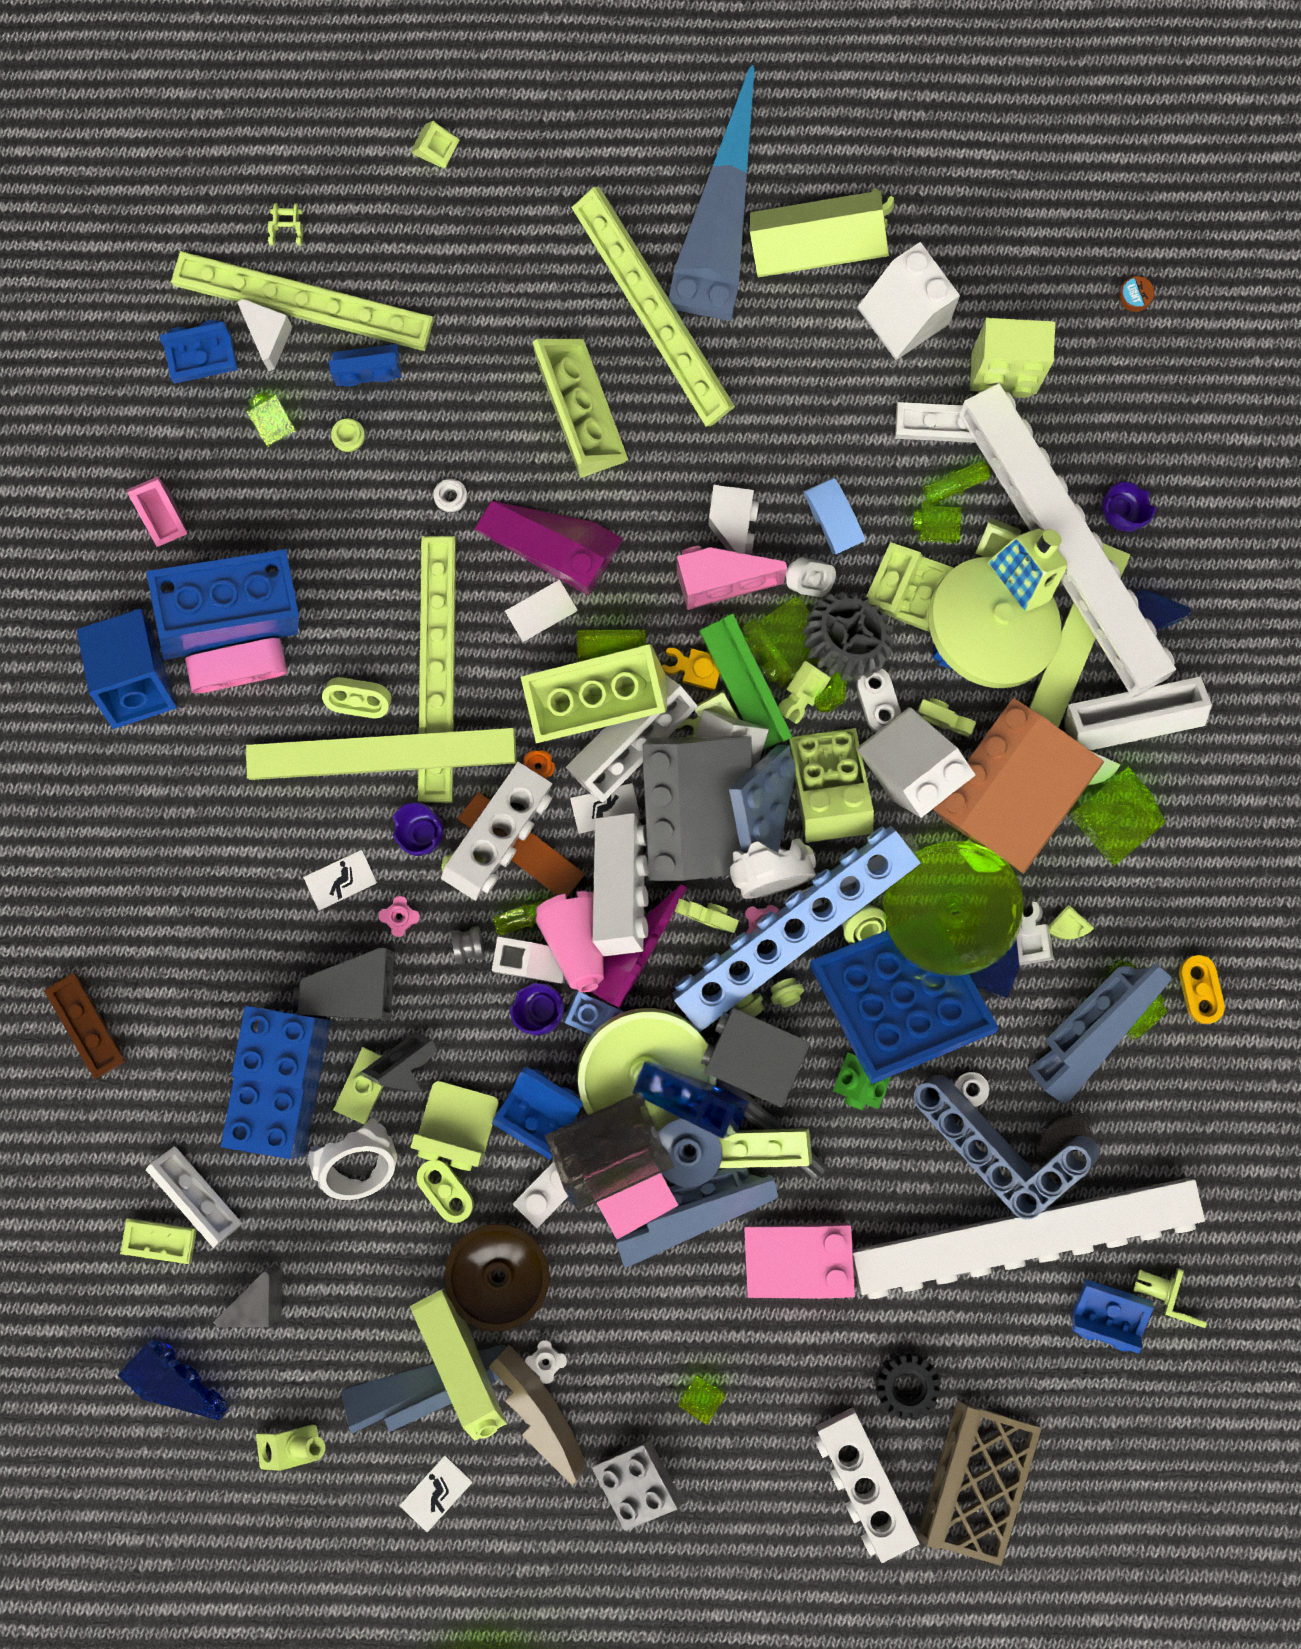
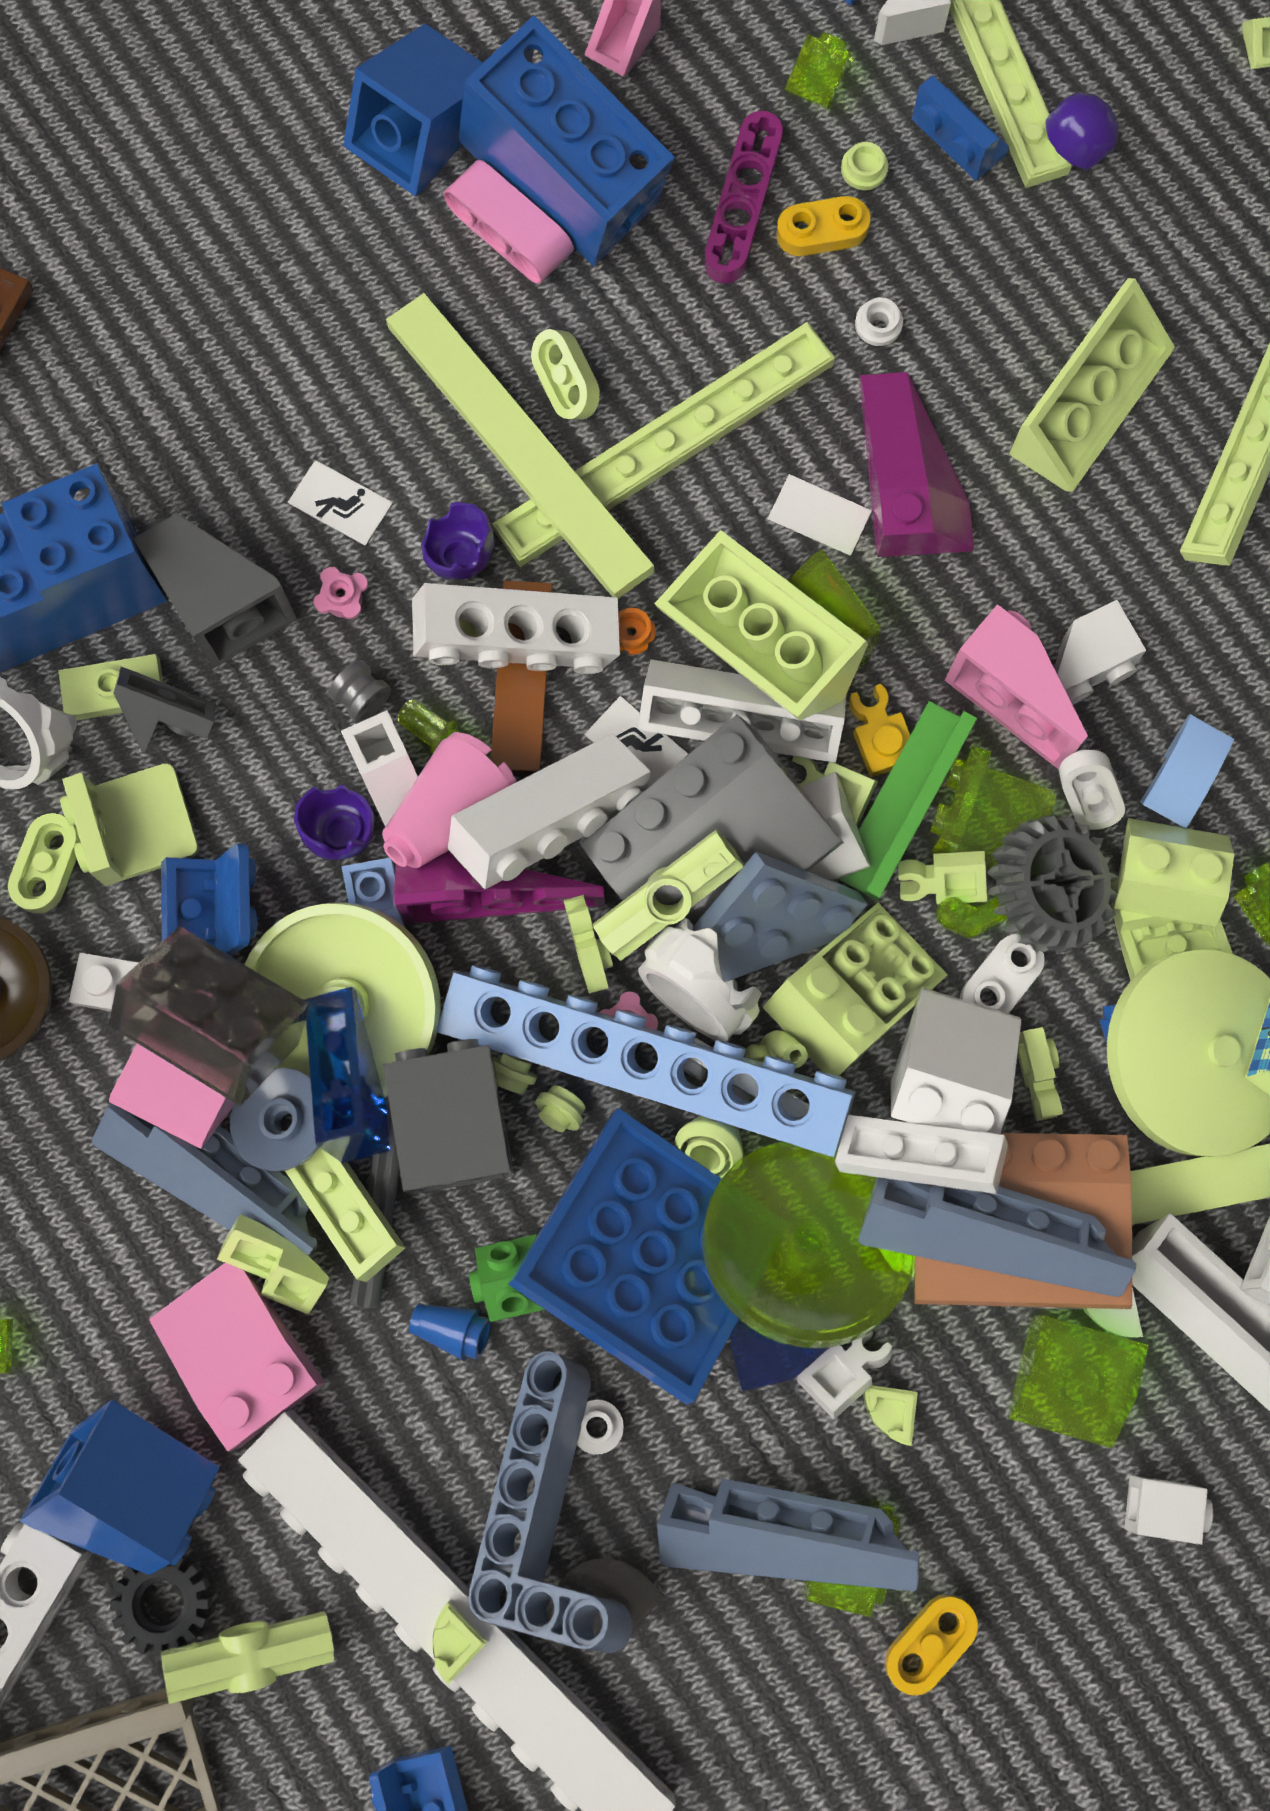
camera: 50 degrees right, 5 degrees down
(318, 516) = (741, 196): none -> magenta beam
(367, 483) = (825, 228): none -> yellow plate
(416, 295) = (1082, 129): none -> dark purple hair
(716, 873) = (643, 916): none -> yellowish green piece
(774, 1202) = (287, 1270): none -> yellowish green slope
(834, 850) = (779, 1045): none -> yellowish green arm
(835, 1368) = (123, 1491): none -> blue slope
(866, 1133) = (452, 1329): none -> blue cone
(885, 564) = (1174, 872): none -> yellowish green slope
(952, 815) = (922, 1153): none -> white plate
(968, 1357) = (247, 1657): none -> yellowish green piece
(1015, 806) = (995, 1234): none -> sand blue wedge
(1036, 1239) = (454, 1642): none -> yellowish green tile
(1216, 816) = (1168, 1510): none -> white brick

